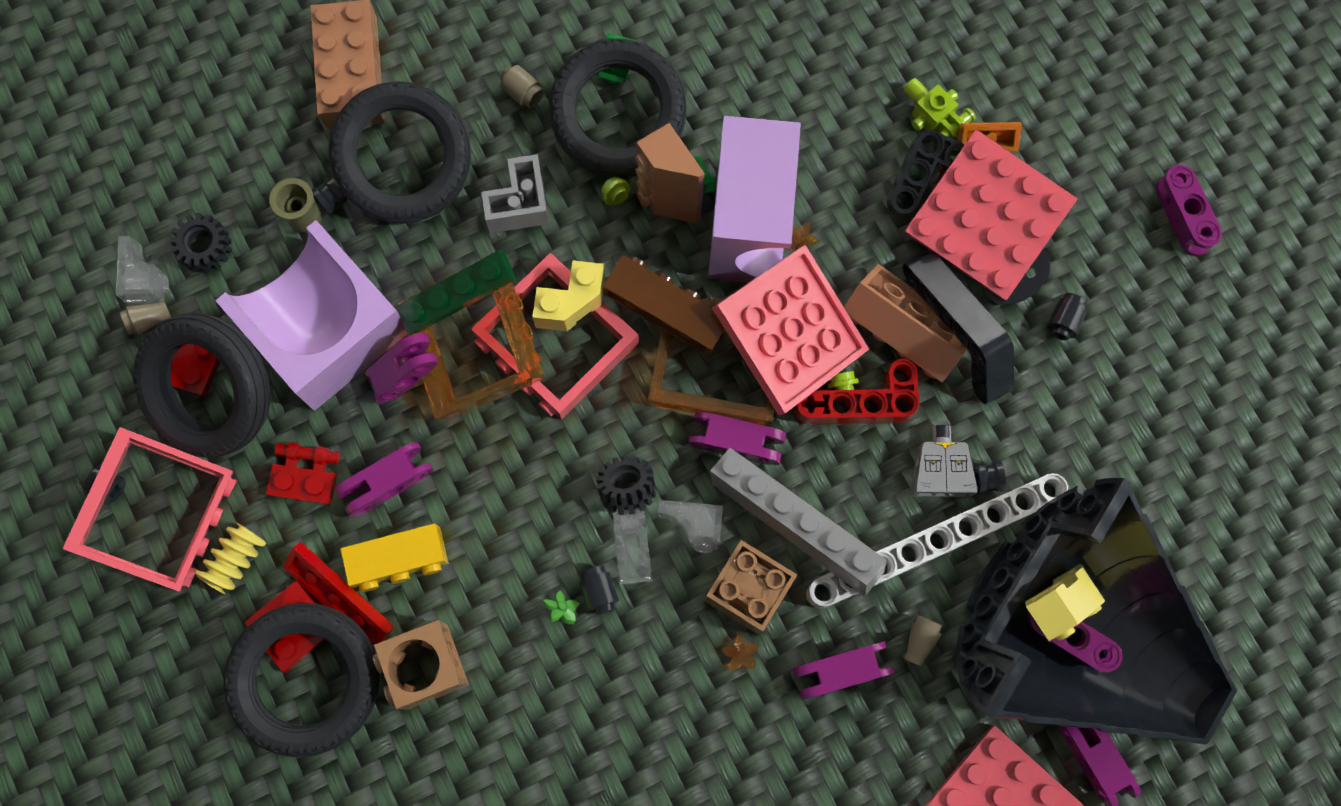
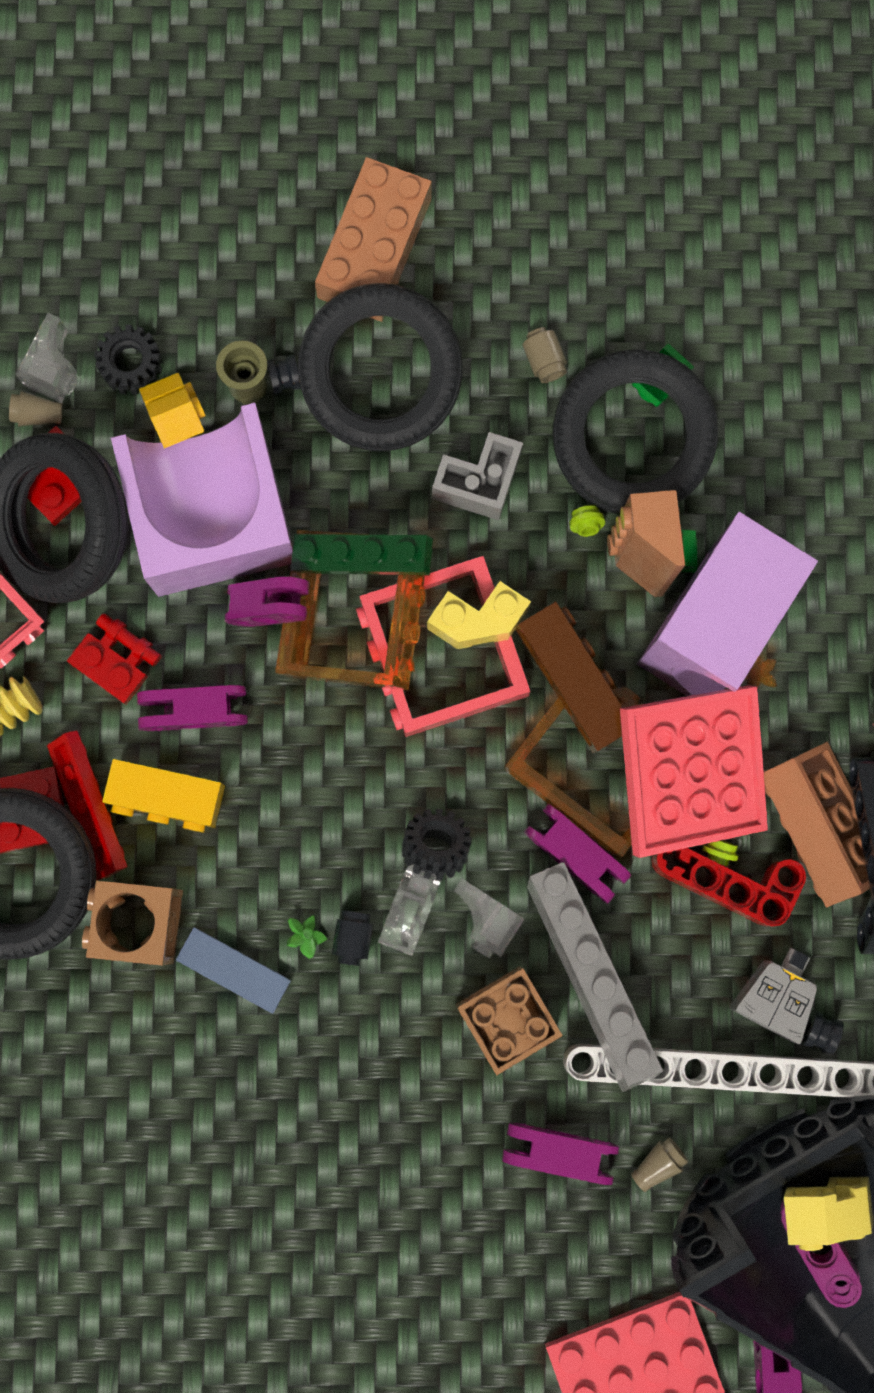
camera: 25 degrees right, 5 degrees up
(255, 260) = (173, 409): none -> yellow piece
(518, 664) = (233, 970): none -> sand blue tile
(740, 653) = (464, 1078): clear orange plant -> none

